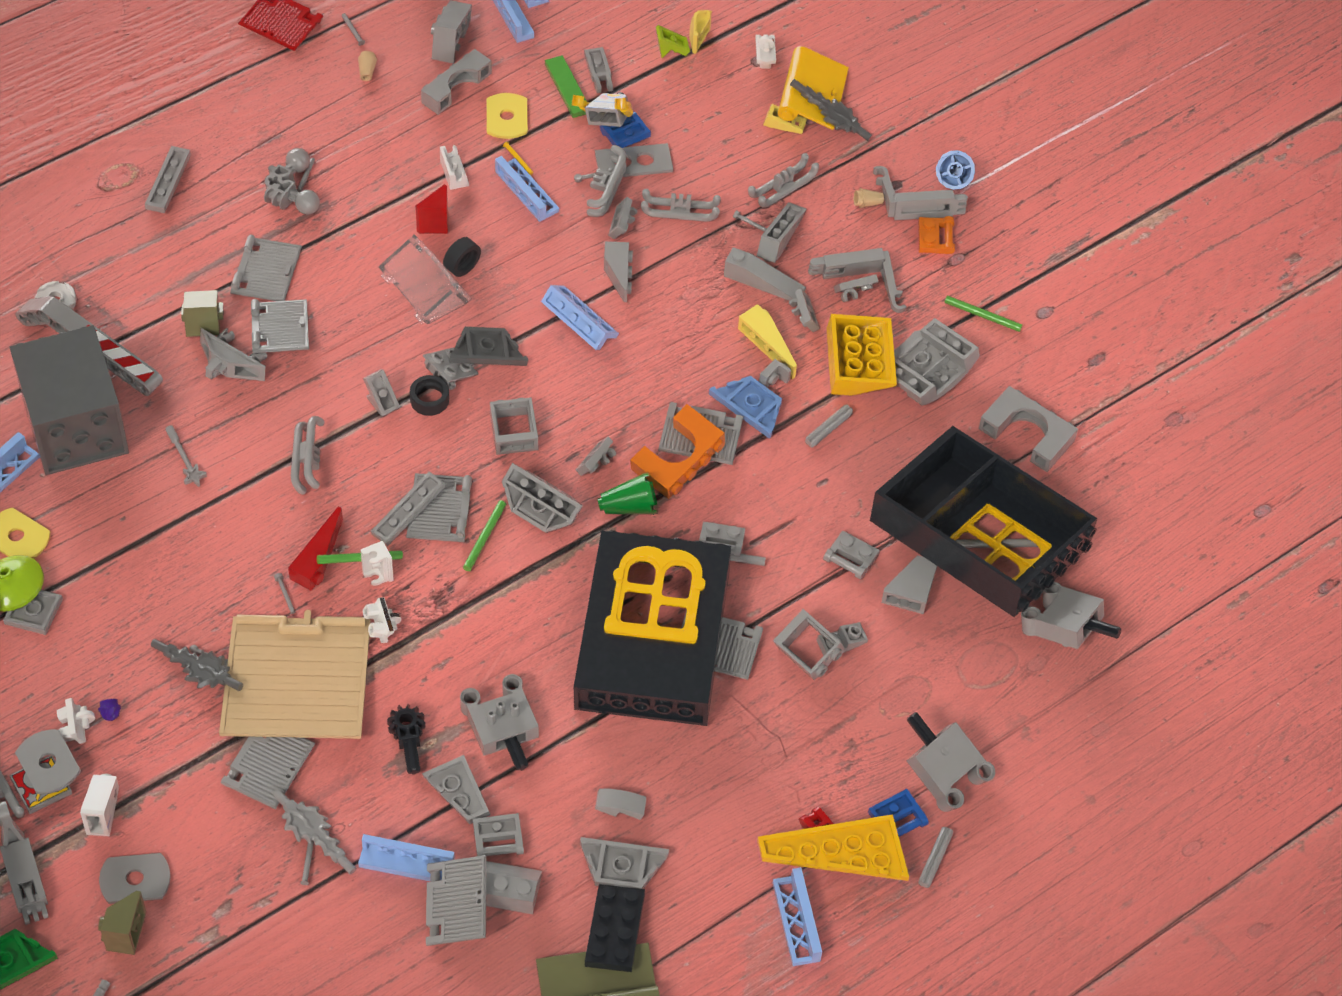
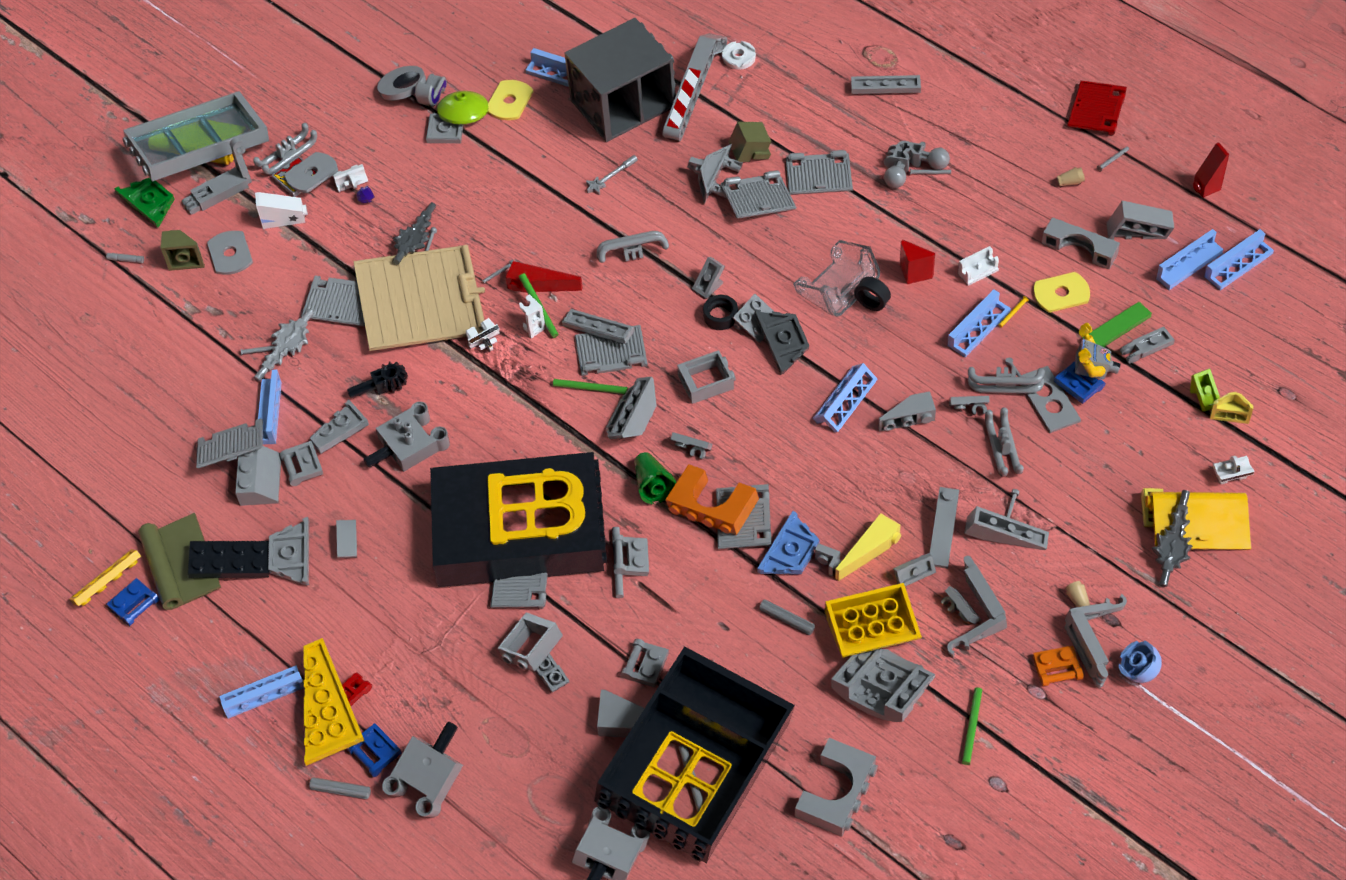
camera: 85 degrees right, 0 degrees up
(784, 183) = (1067, 521): light grey piece -> none

